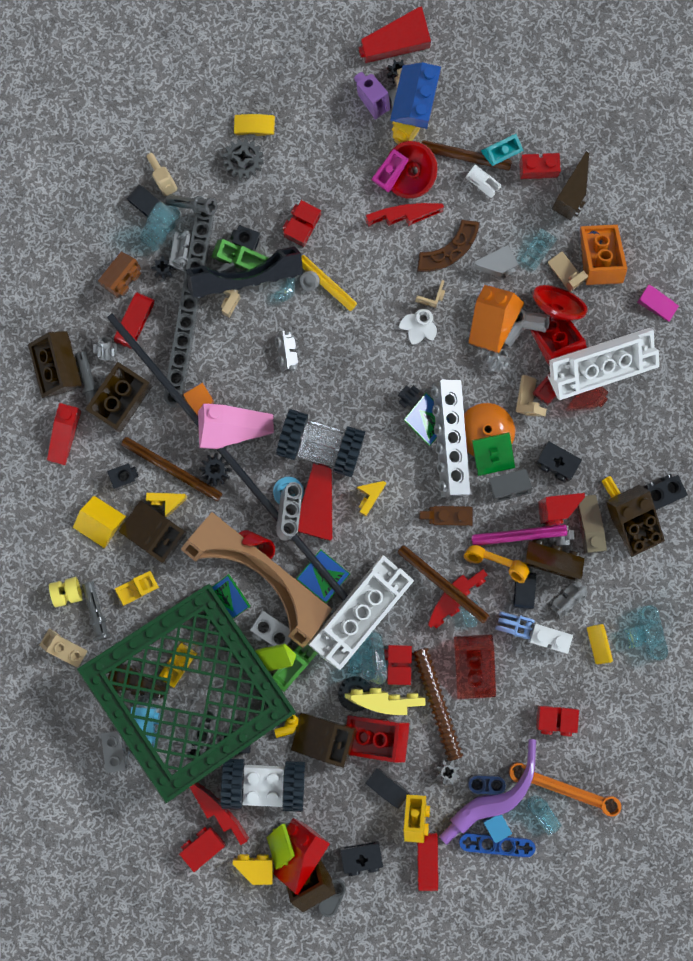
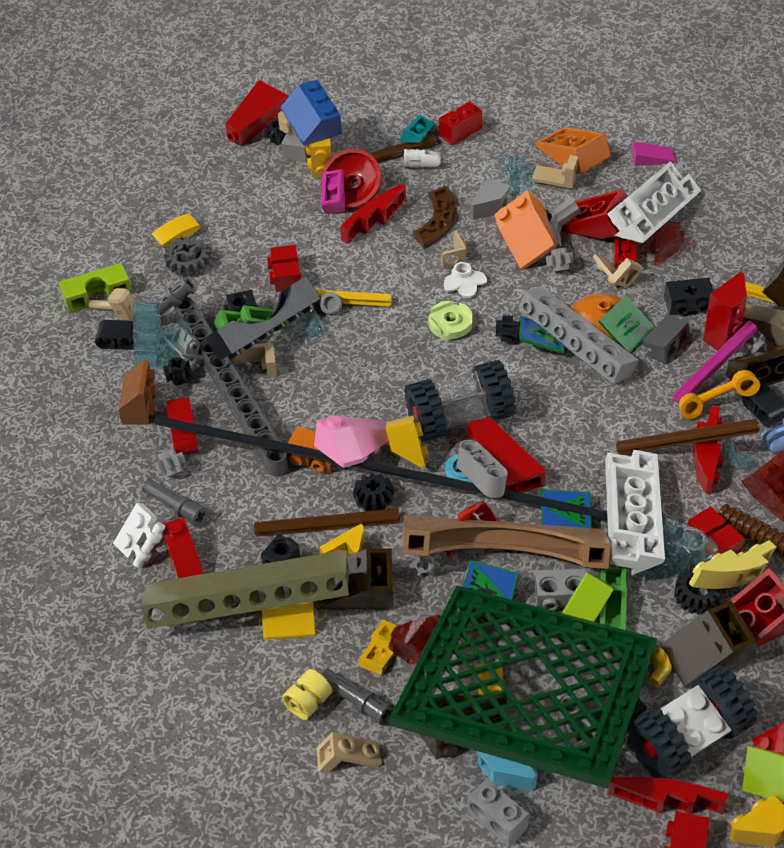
camera: 30 degrees left, 35 degrees down
(43, 393) = (135, 531): none -> white plate
(54, 364) = (115, 498): dark brown slope -> none
(76, 494) = (245, 584): none -> olive tile
(119, 397) = (220, 488): dark brown slope -> none
(143, 138) = (77, 289): none -> lime arch
(157, 600) = (411, 638): none -> clear red slope
(261, 449) = (405, 440): none -> yellow slope
(284, 342) = (356, 366): light grey hinge -> none
(372, 94) = (269, 152): medium lavender torso -> none
(373, 491) = (545, 419): yellow slope -> none
(388, 350) = (450, 330): none -> yellowish green plate
(448, 515) = (634, 396): reddish brown hinge -> none
(559, 303) = (576, 188): red dish -> none
(570, 199) = (507, 118): dark brown slope -> none

